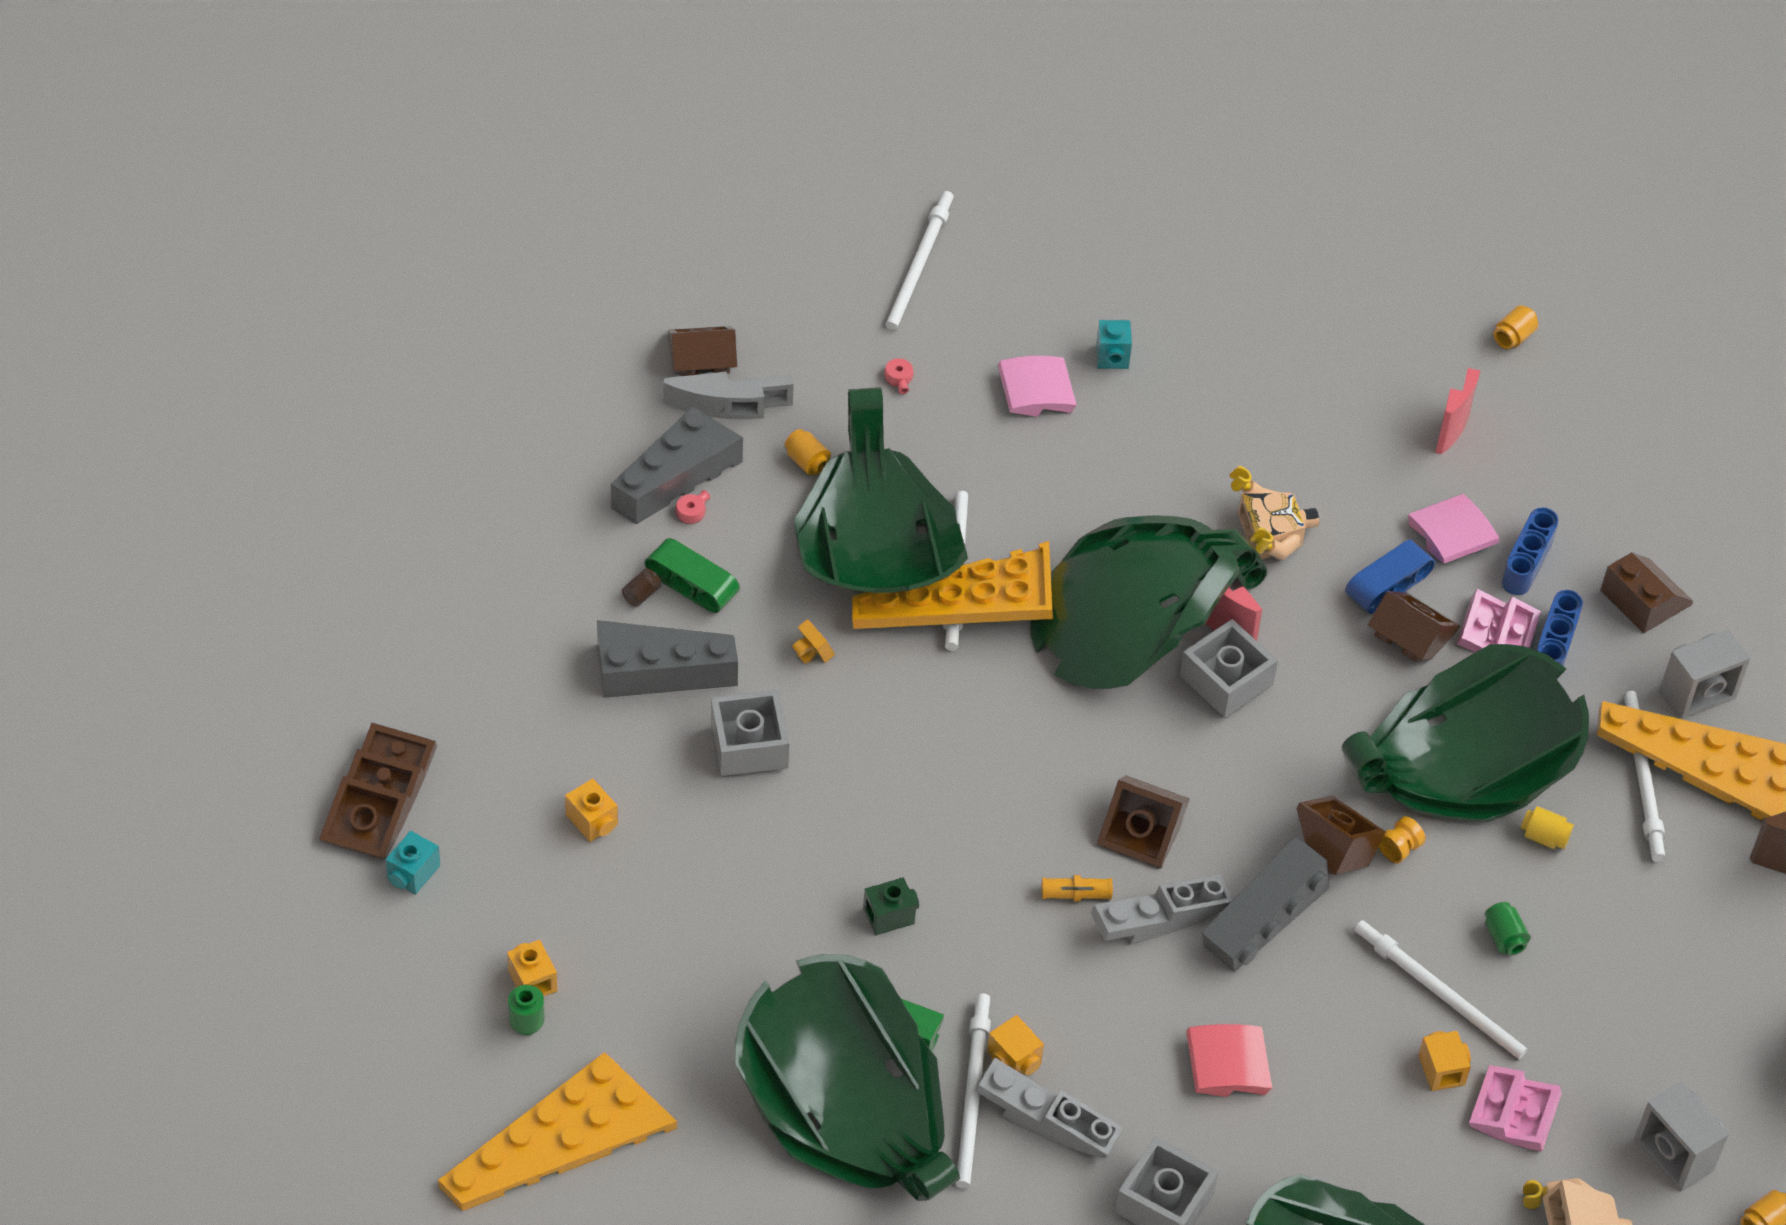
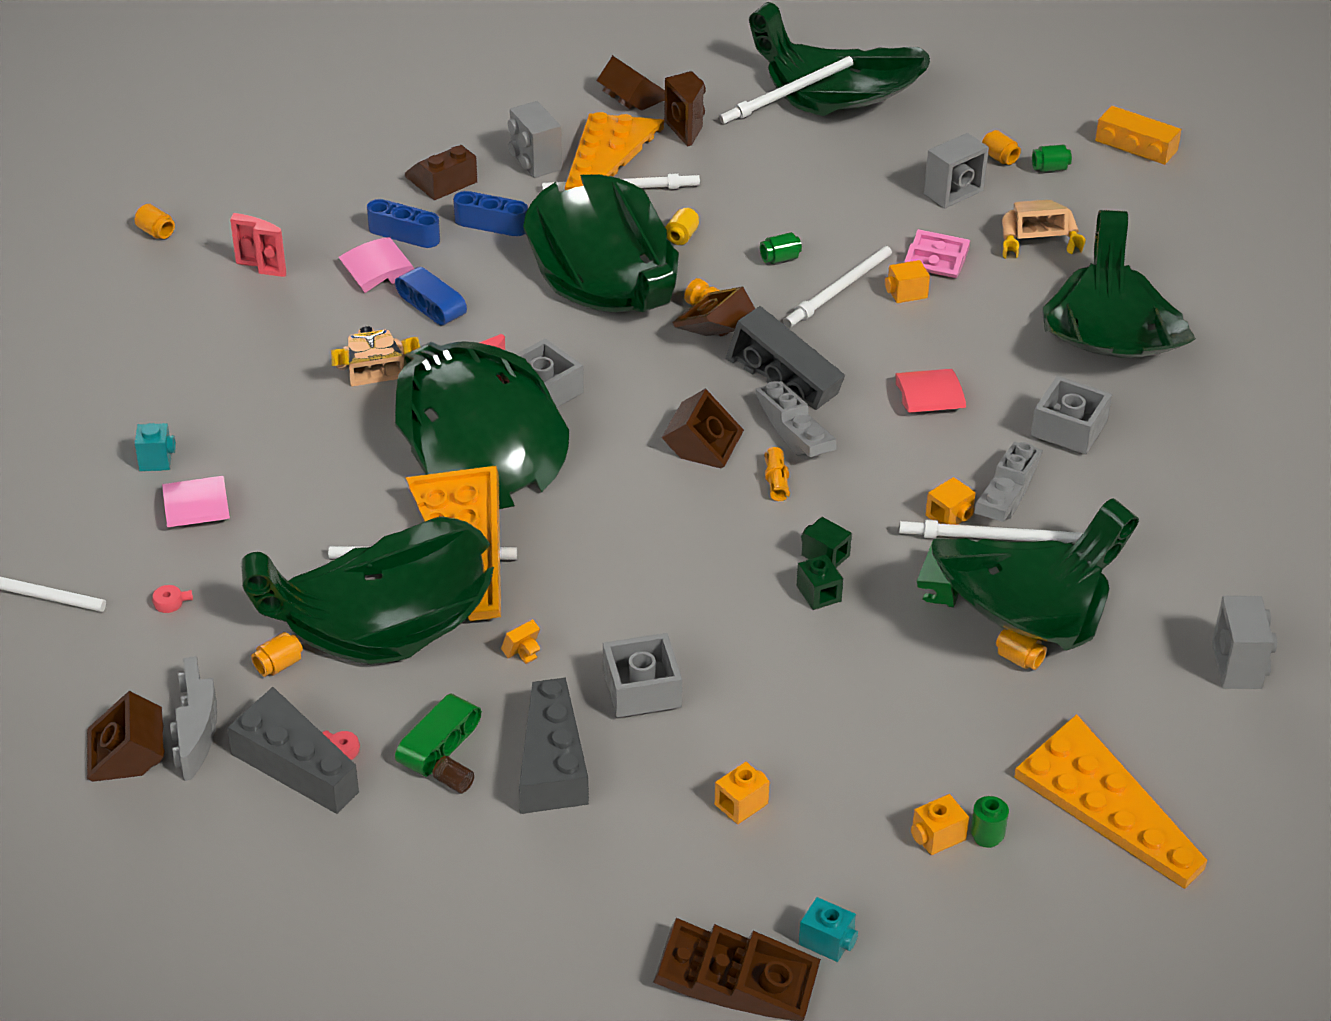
camera: 90 degrees left, 10 degrees down
(943, 913) = (826, 539): none -> dark green brick
(1412, 625) = (489, 281): reddish brown slope -> none
(1497, 622) = (479, 246): bright pink slope -> none

